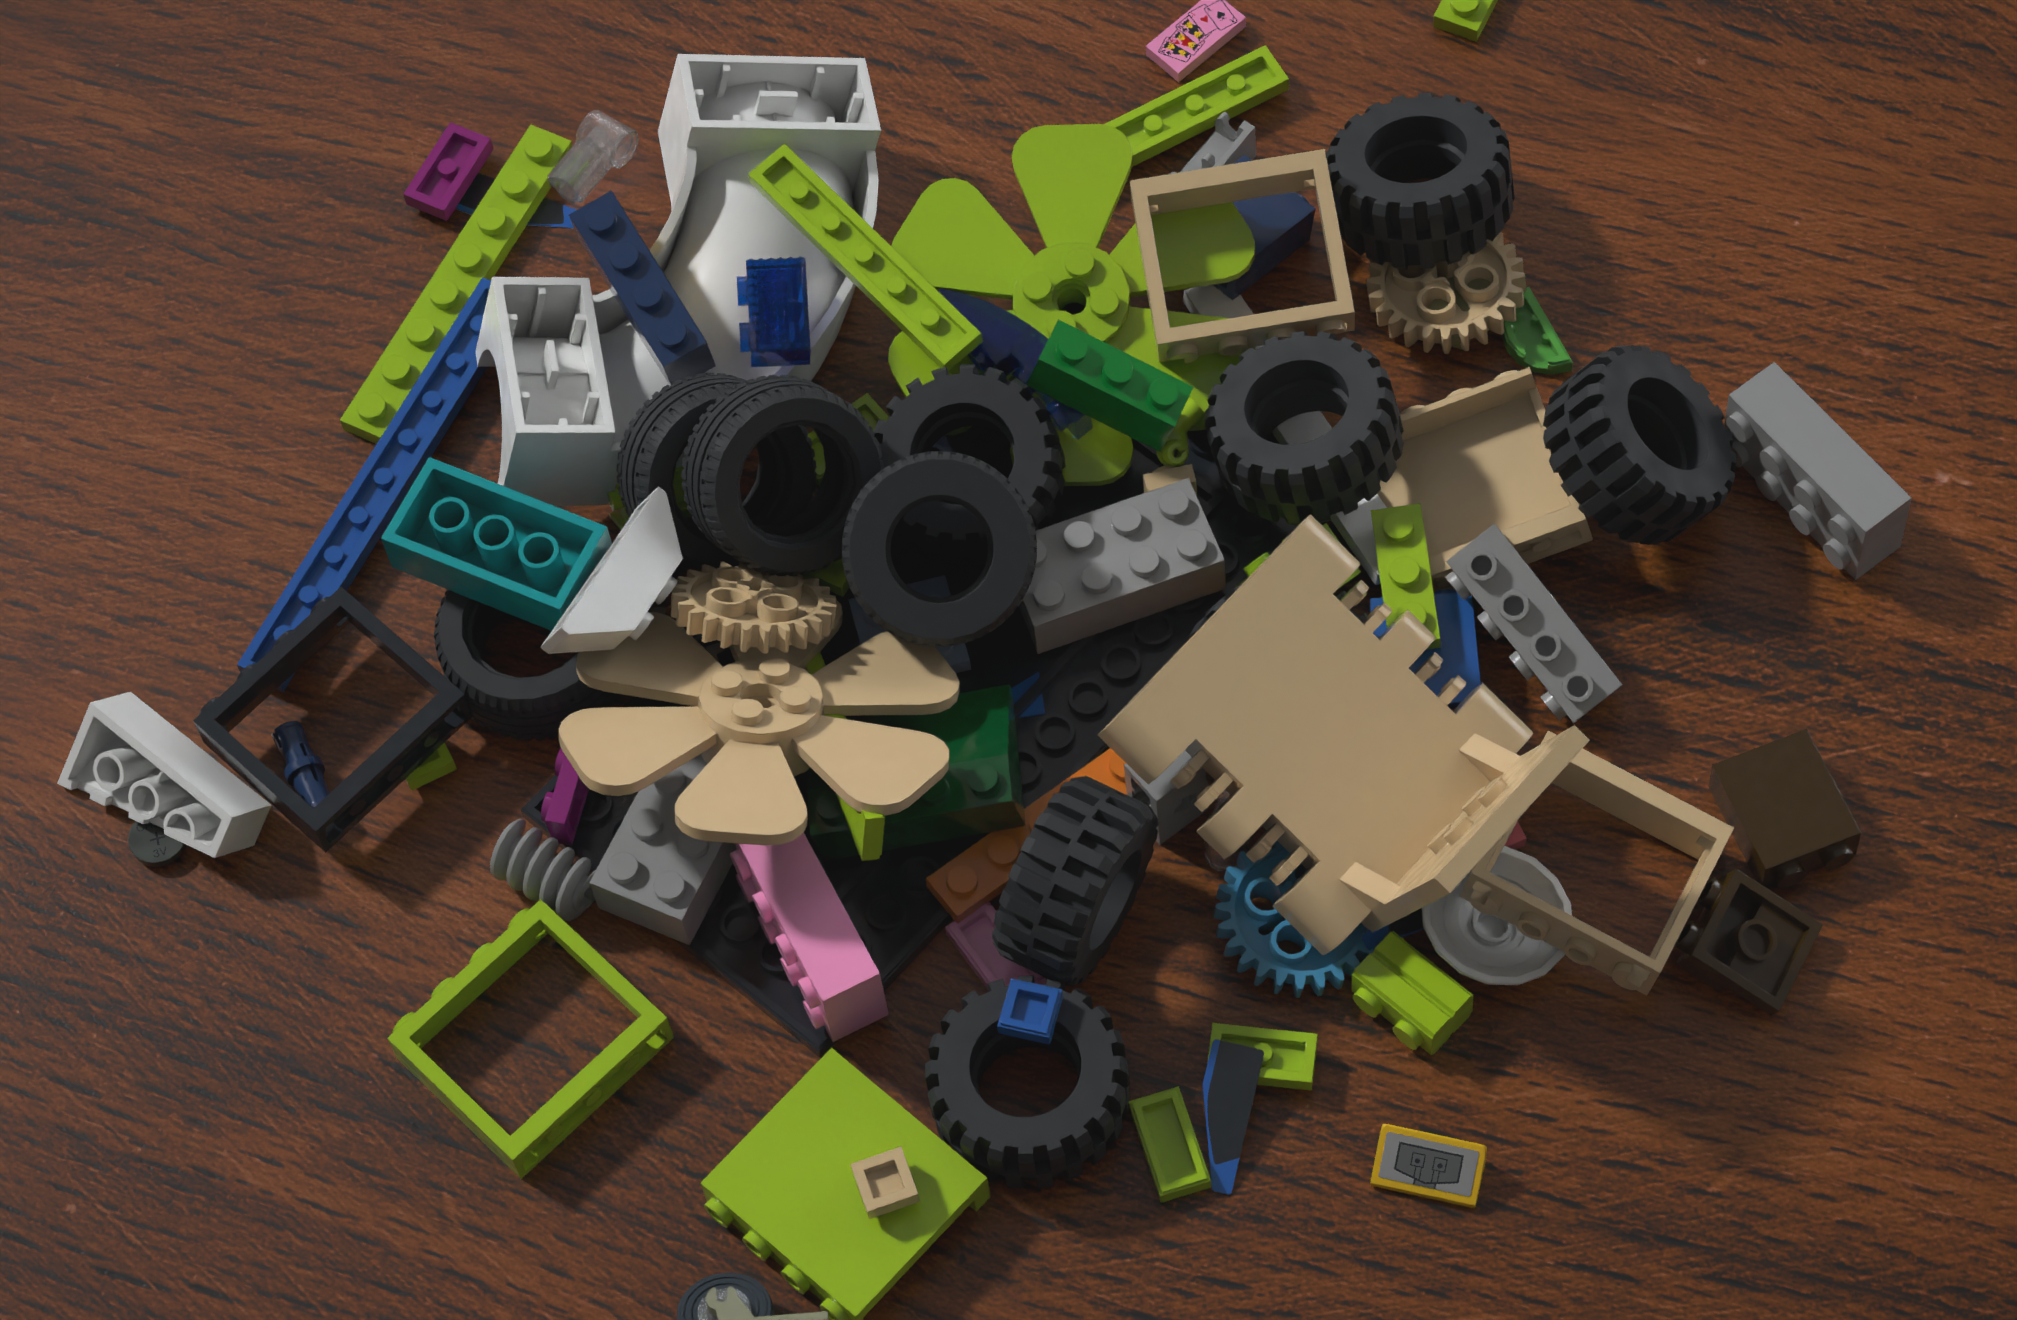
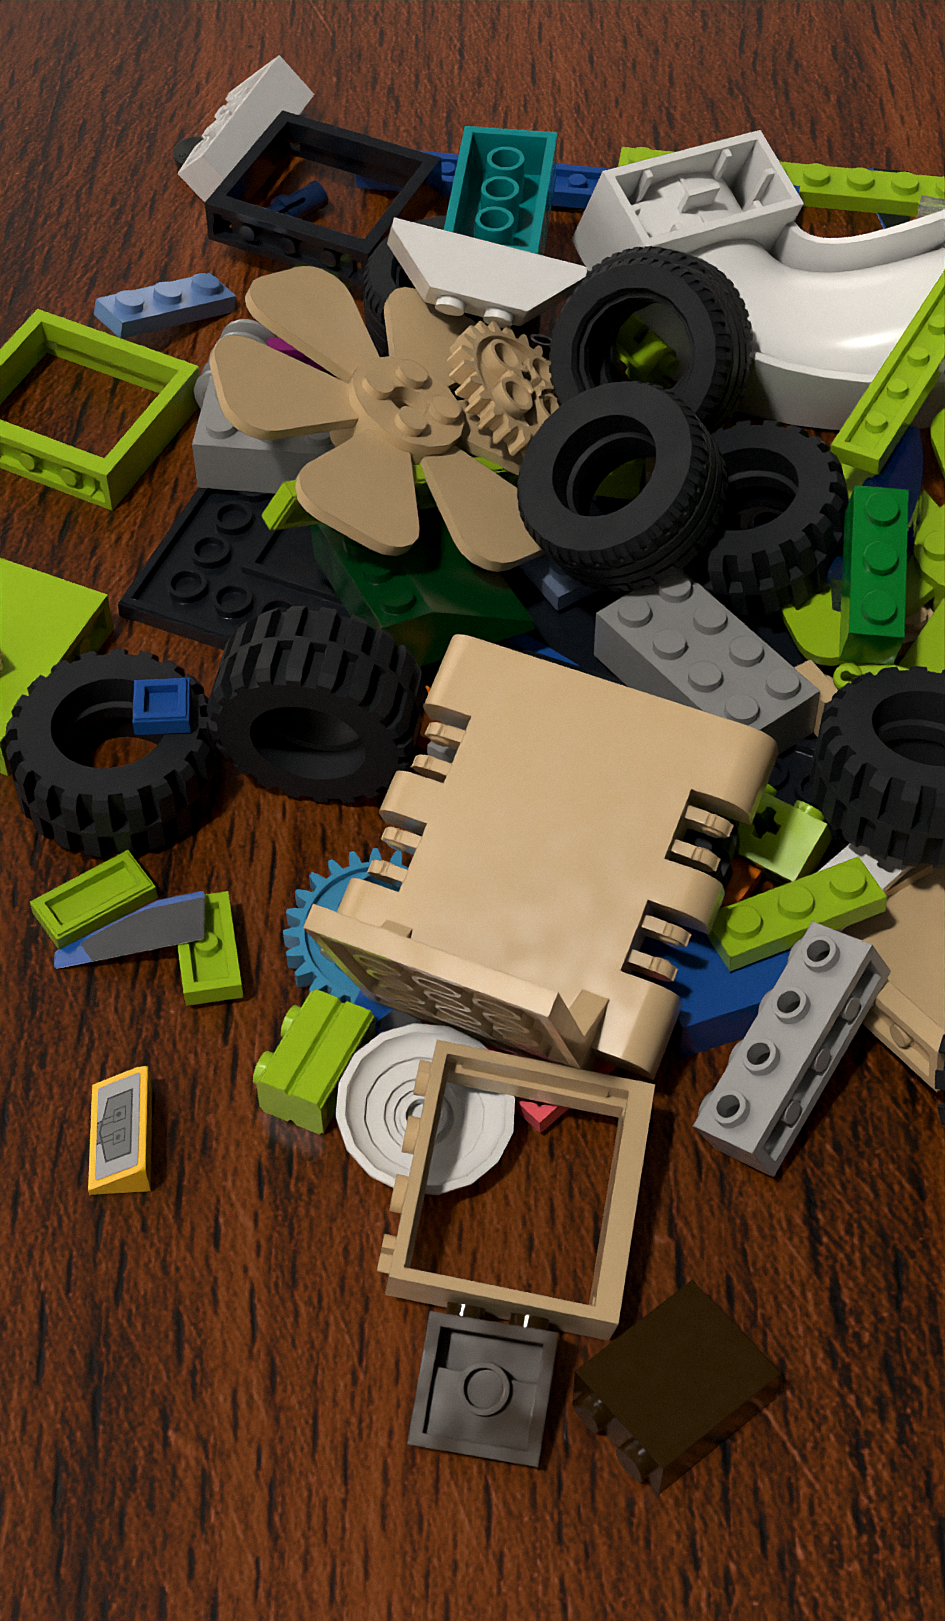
camera: 65 degrees right, 10 degrees down
(415, 917) = (164, 305): none -> medium blue plate
(448, 171) = (895, 145): magenta plate -> none
(642, 289) = (803, 228): dark blue brick -> none
(777, 312) = (831, 326): clear blue brick -> none
(812, 934) = (210, 541): bright pink brick -> none

